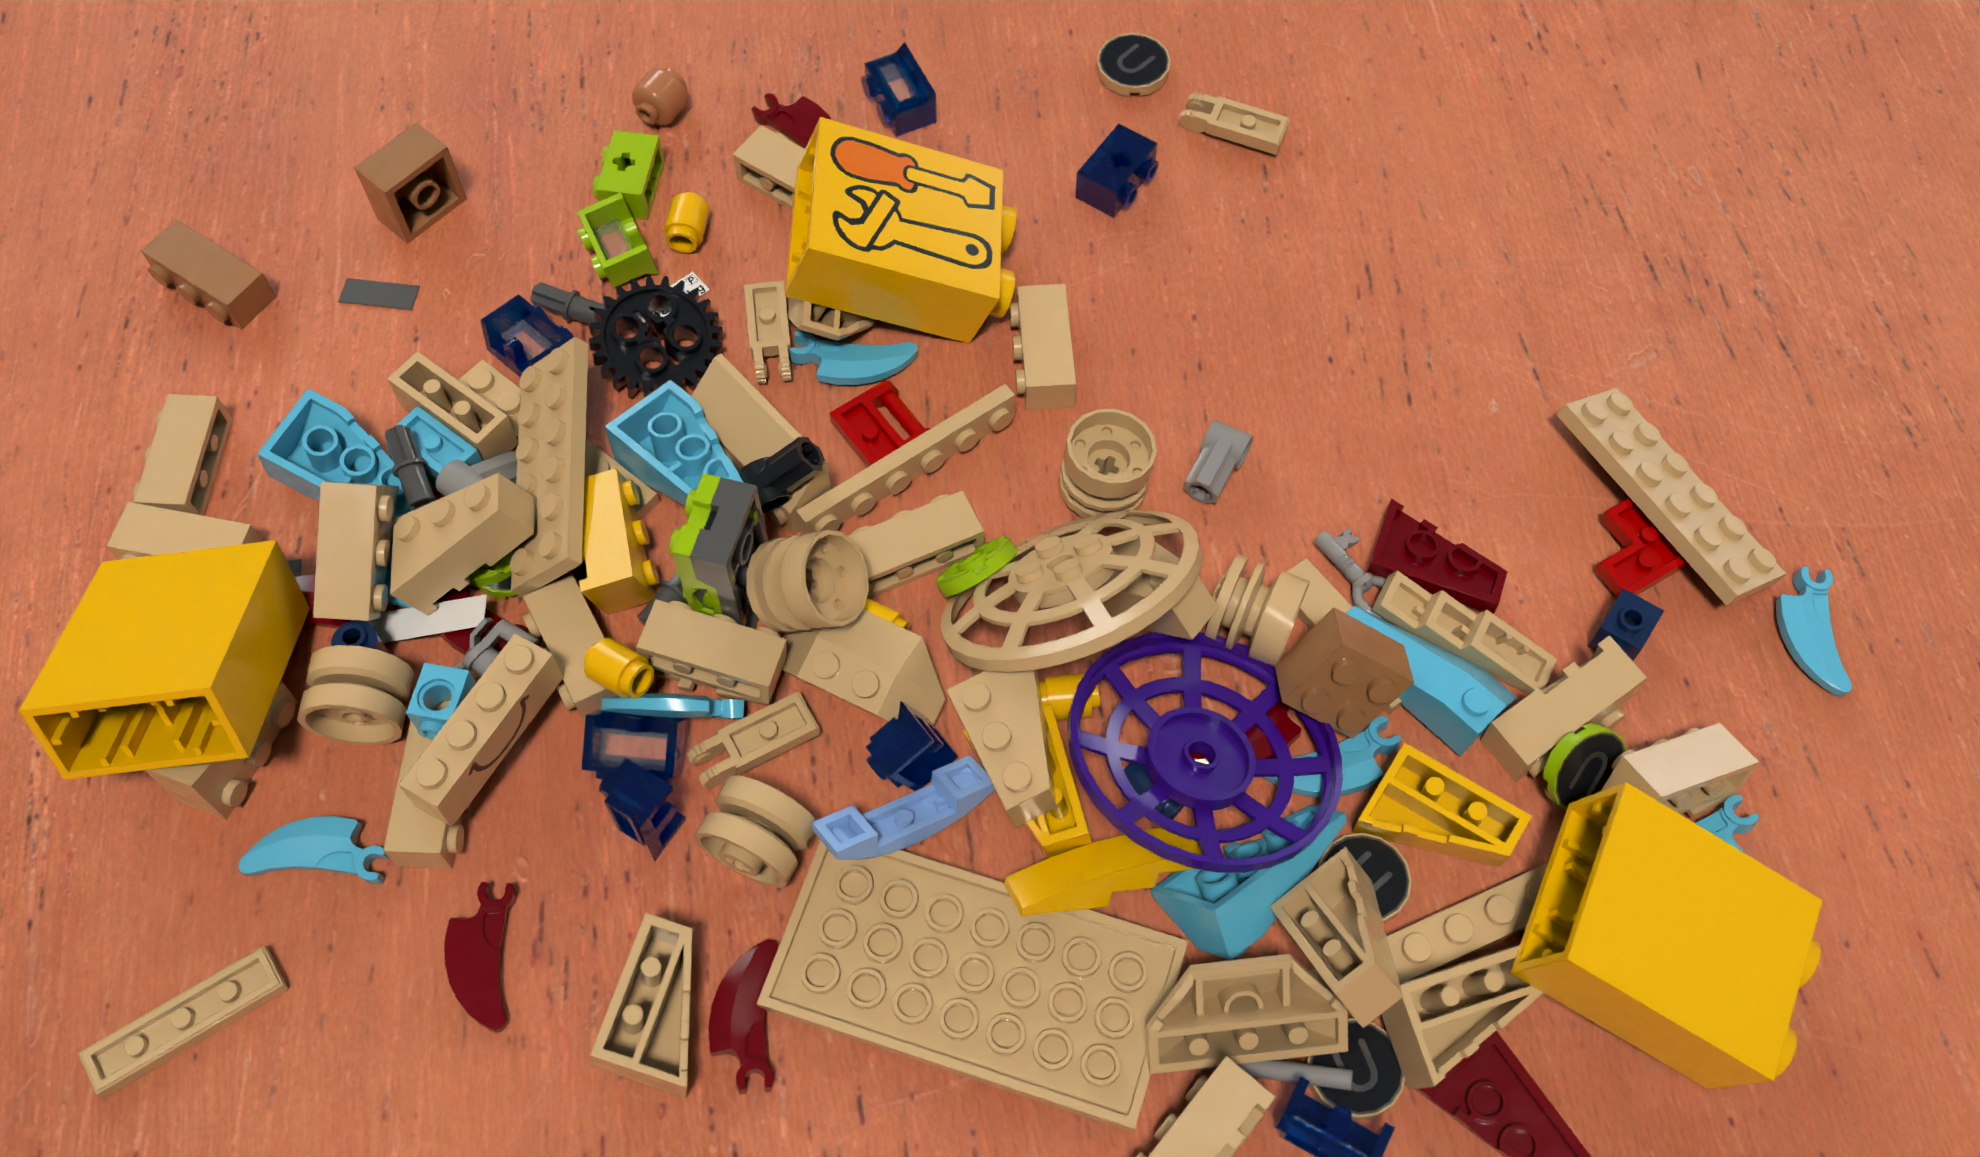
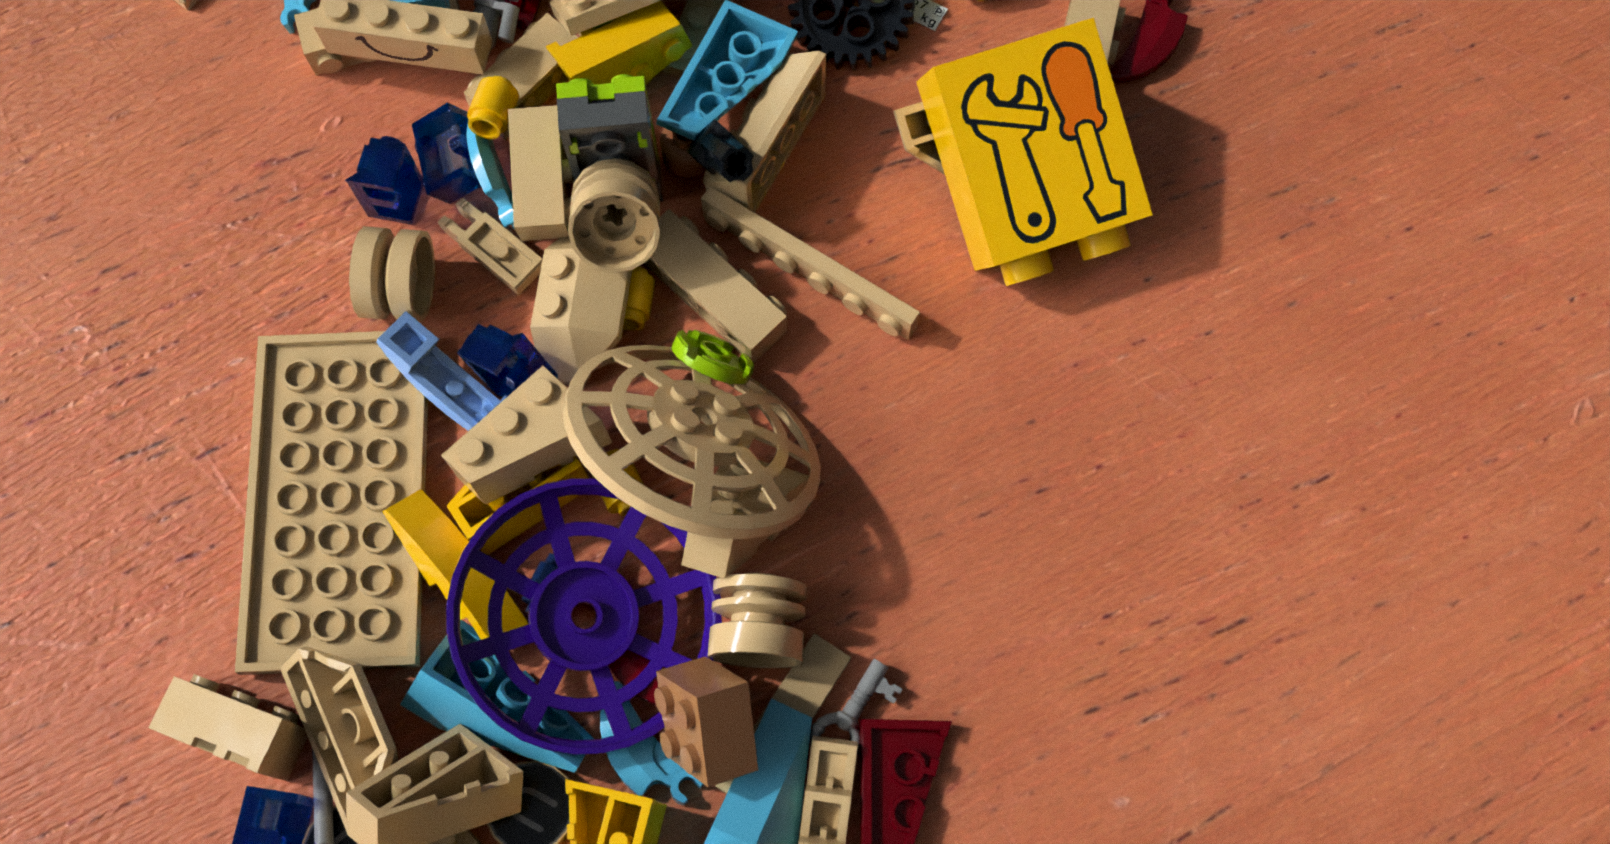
camera: 70 degrees right, 10 degrees up
(474, 958) = (245, 121): dark red piece -> none
(649, 1012) = (225, 260): tan wedge -> none
(737, 1021) = (240, 330): dark red piece -> none
(768, 327) = (892, 94): tan hinge -> none
(851, 363) = (905, 183): medium azure piece -> none
(868, 429) = (832, 217): red plate -> none
(900, 91) = (1234, 96): clear blue window -> none
(1043, 347) = (989, 334): tan brick -> none
(1106, 463) = (872, 410): tan wheel -> none
(1116, 171) = (1237, 330): clear blue brick -> none
(1133, 64) = (1392, 302): tile -> none
(1220, 453) = (939, 539): light grey piece -> none
(1234, 122) = (1363, 430): tan hinge -> none

